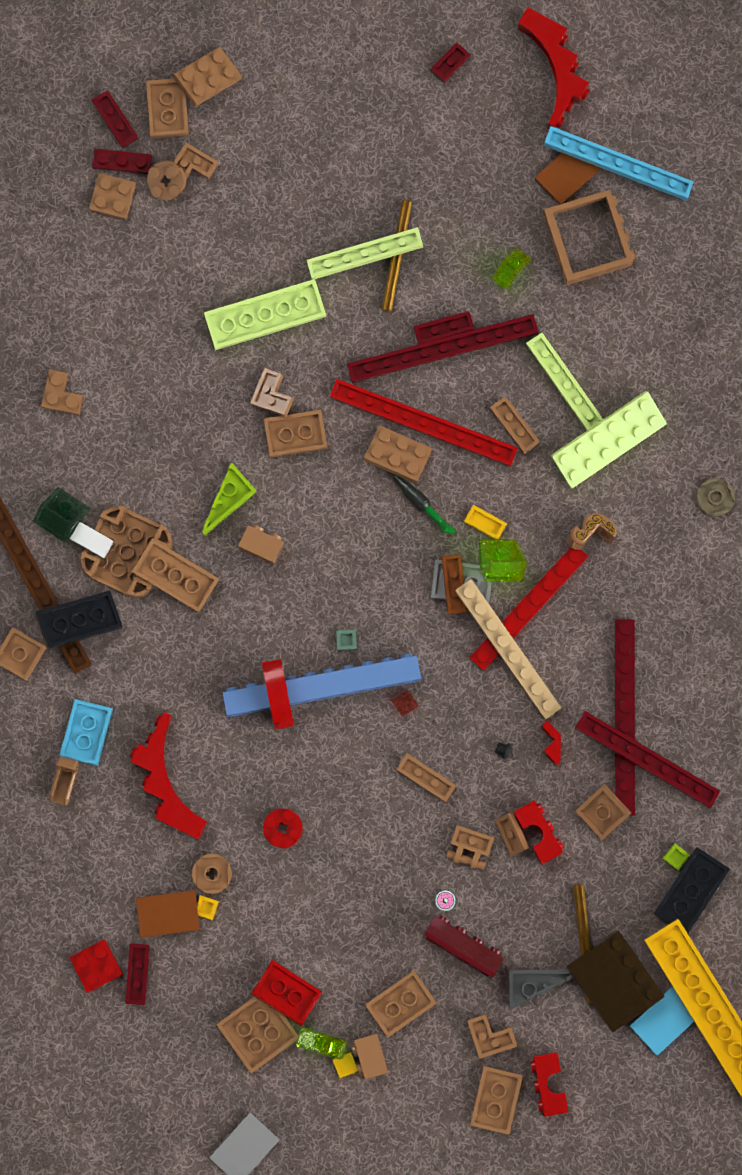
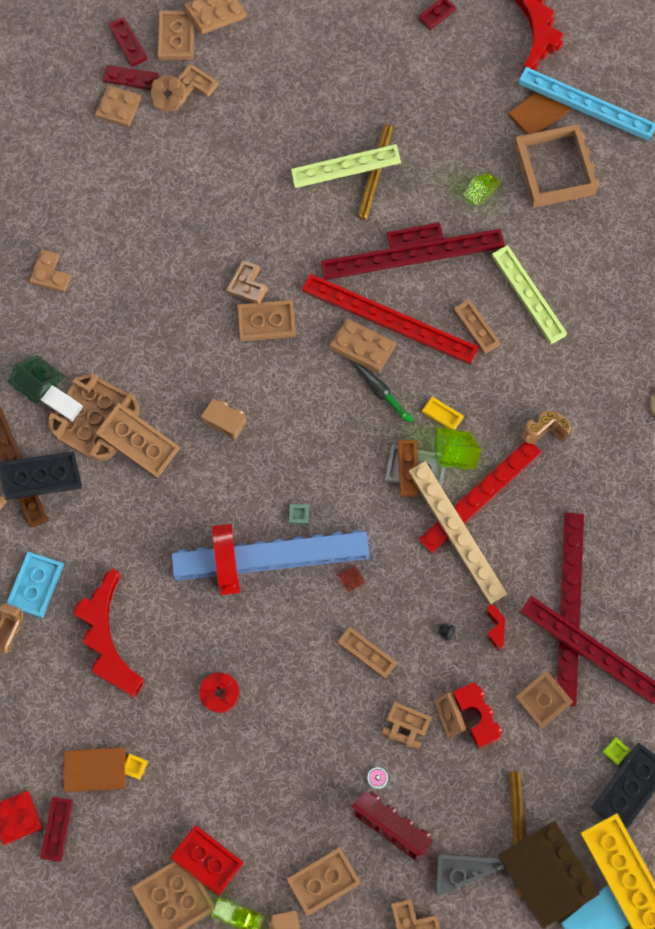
camera: 10 degrees right, 10 degrees down
(203, 866) = (152, 725): medium nougat plate -> none
(232, 494) = (201, 371): lime wing -> none
(265, 314) = (248, 214): yellowish green plate -> none
(608, 439) = (566, 345): yellowish green plate -> none

